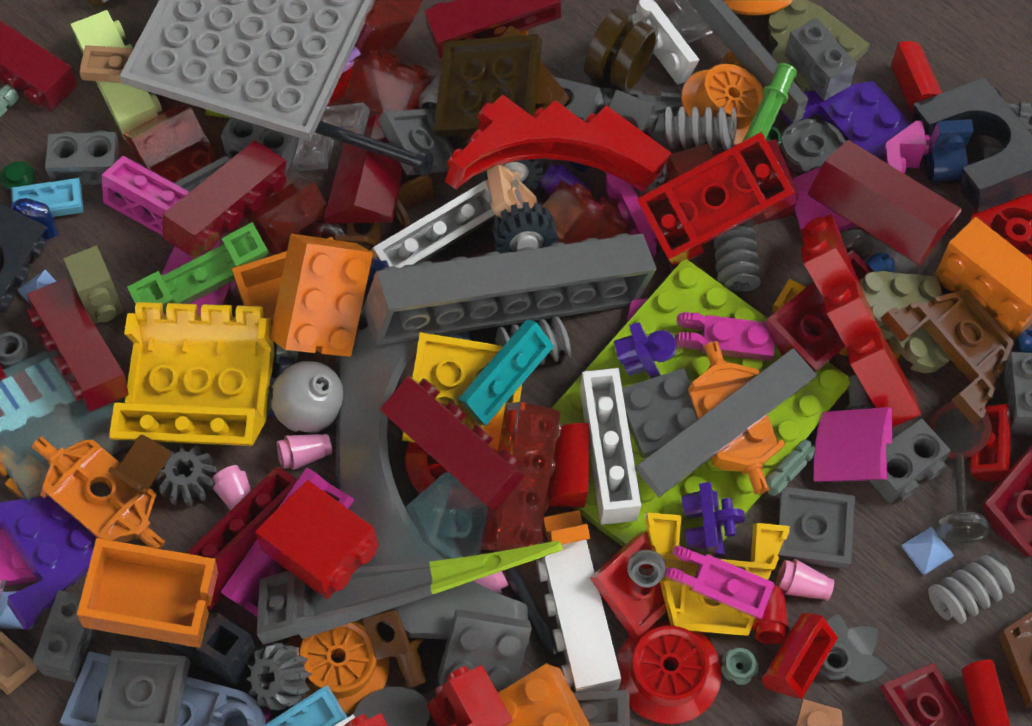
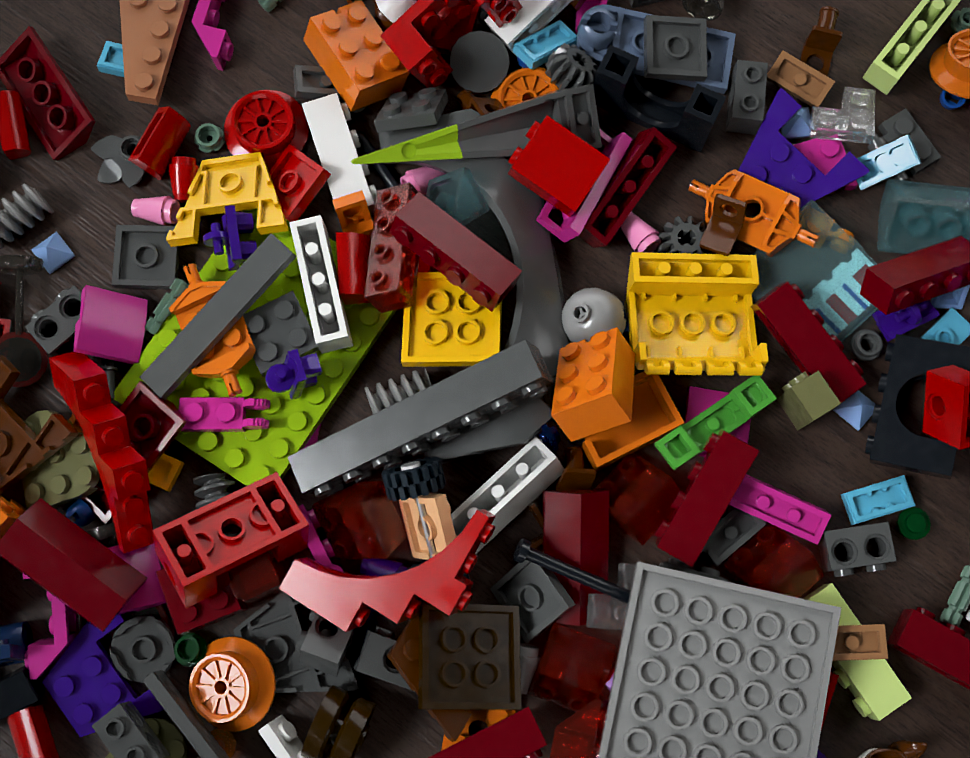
camera: 175 degrees right, 15 degrees up
(38, 212) = (882, 475): clear blue arm -> none
(147, 592) = (684, 75): orange piece -> none
(302, 450) = (589, 276): bright pink cone -> none
(506, 372) = (416, 329): teal plate -> none
(650, 576) = (283, 182): dark grey plate -> none
(700, 129) = (253, 634): light grey piece -> none
(723, 582) = (222, 182): dark pink hinge -> none
(774, 96) = (182, 657): bright green axle -> none

